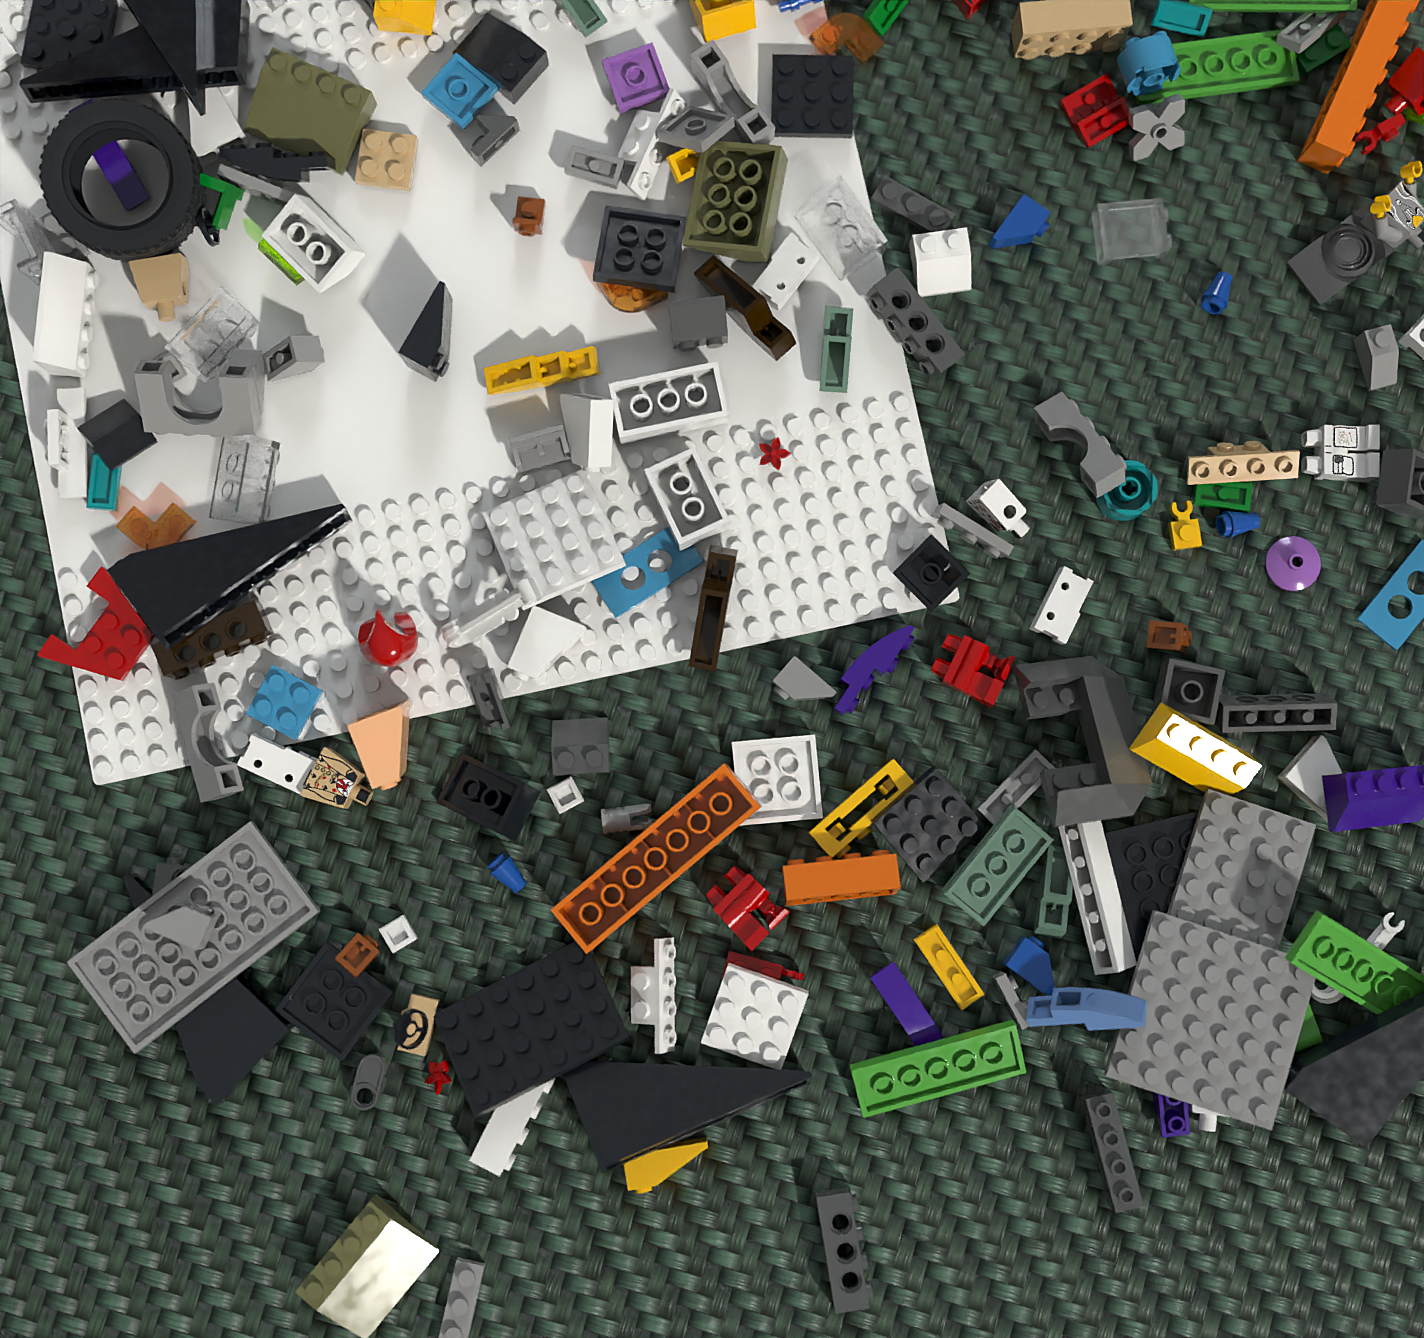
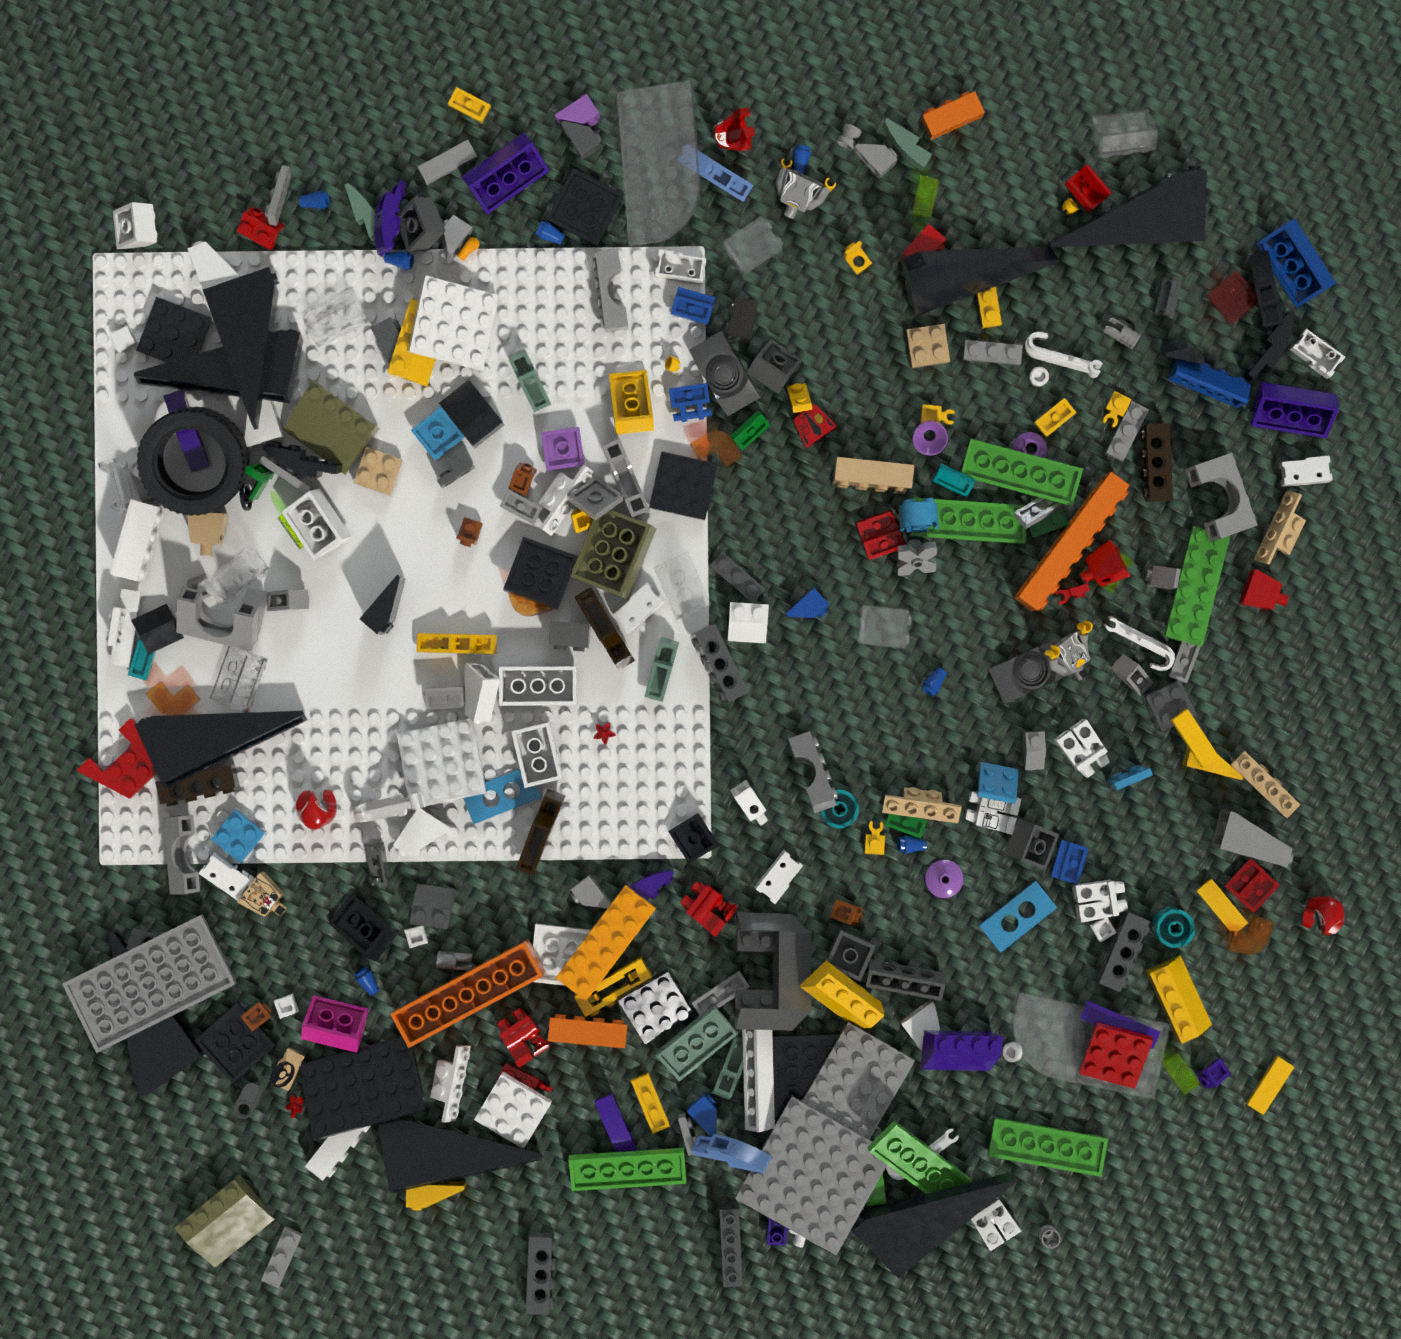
camera: 15 degrees right, 5 degrees up
(186, 925) = (145, 977): light grey slope -> none
(383, 743) = (298, 879): light nougat slope -> none
(472, 944) = (334, 1023): none -> dark pink slope
(588, 128) = (522, 478): none -> dark orange bracket
(839, 745) = (605, 942): none -> light orange plate
(971, 531) = (727, 815): light grey plate -> none
(1340, 410) = (997, 782): none -> dark azure plate

